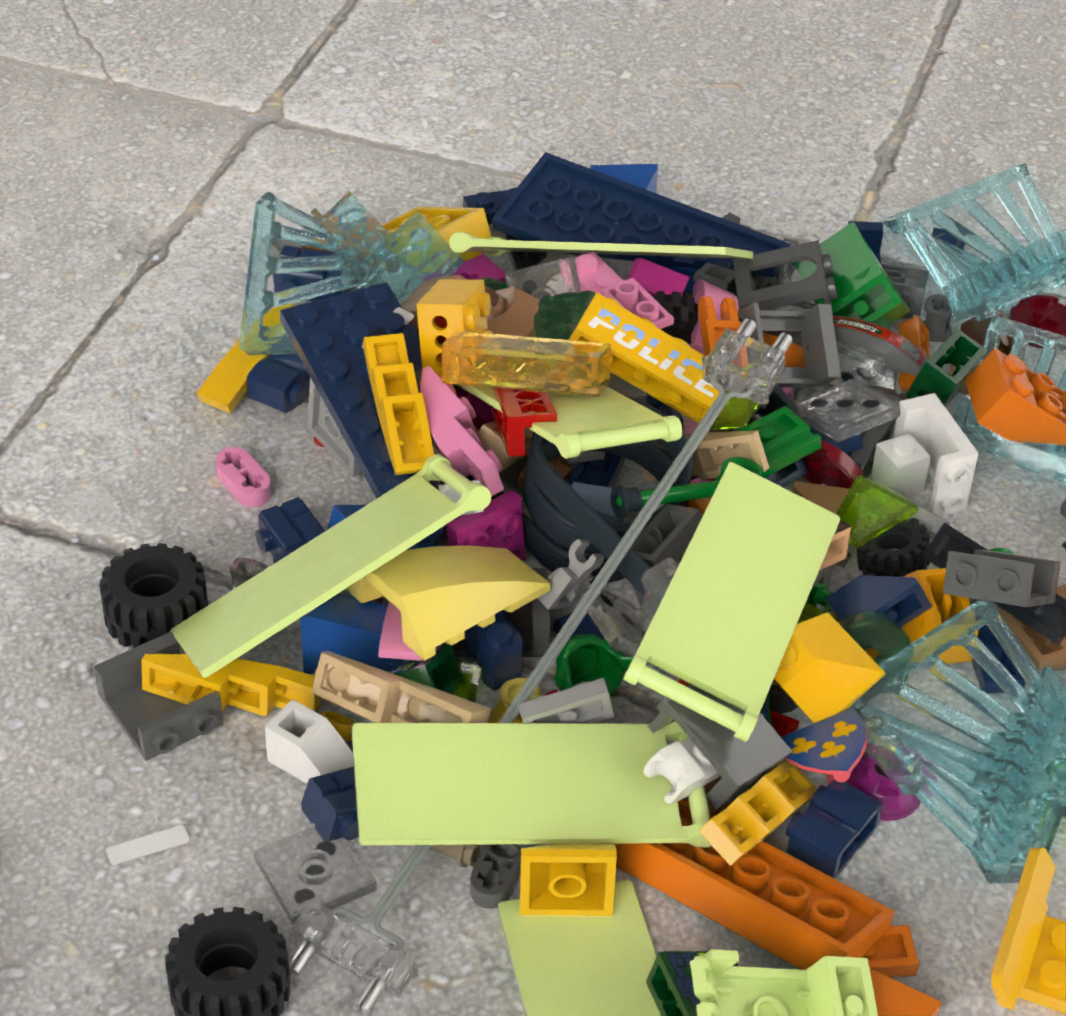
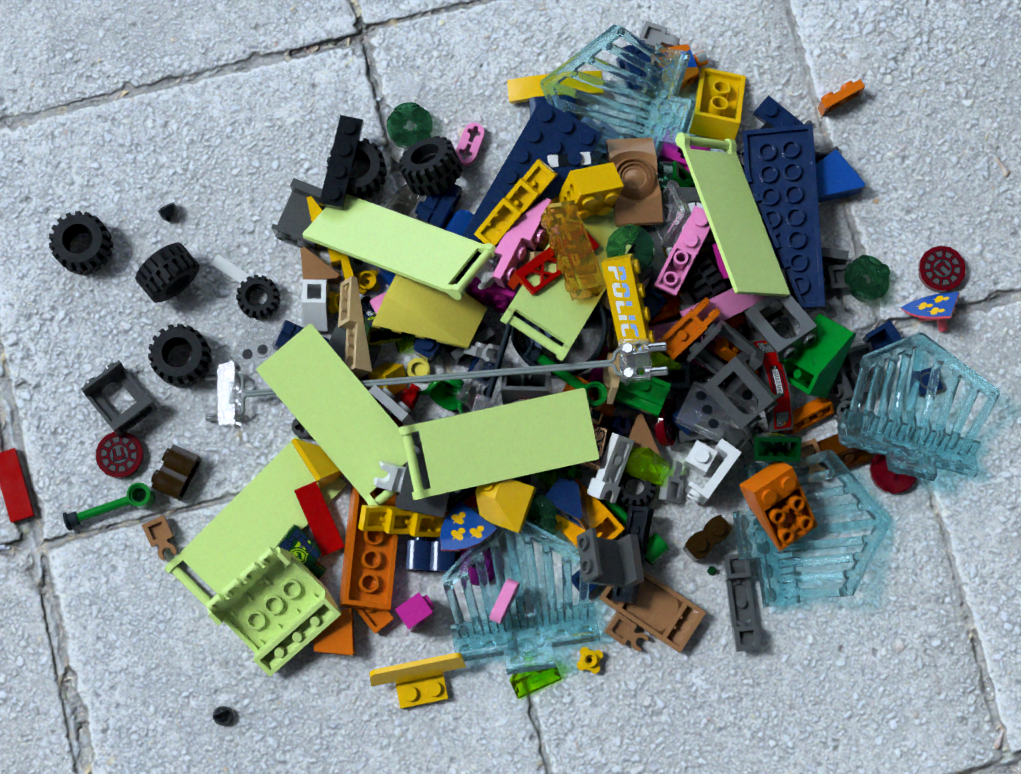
camera: 60 degrees right, 35 degrees up
(79, 898) = (167, 272): none -> black tyre
(132, 510) = (409, 112): none -> clear green plate
(136, 586) = (341, 162): none -> black plate
(225, 804) = (253, 284): none -> black tyre
(239, 505) = (430, 166): none -> black tyre
(242, 725) = (316, 269): none -> medium nougat slope
(524, 144) = (834, 100): none -> orange plate
(647, 933) = (319, 518): none -> red tile
(776, 221) = (878, 275): none -> clear green plate
(812, 173) = (941, 269): none -> tile
(817, 377) = (765, 397): none -> dark grey panel
(861, 192) = (933, 307): none -> blue shield
(875, 556) = (612, 467): none -> white plate
(922, 879) = (416, 611): none -> dark pink brick
(979, 754) = (504, 601): none -> bright pink beam
(1024, 513) = (703, 541): none -> dark brown brick

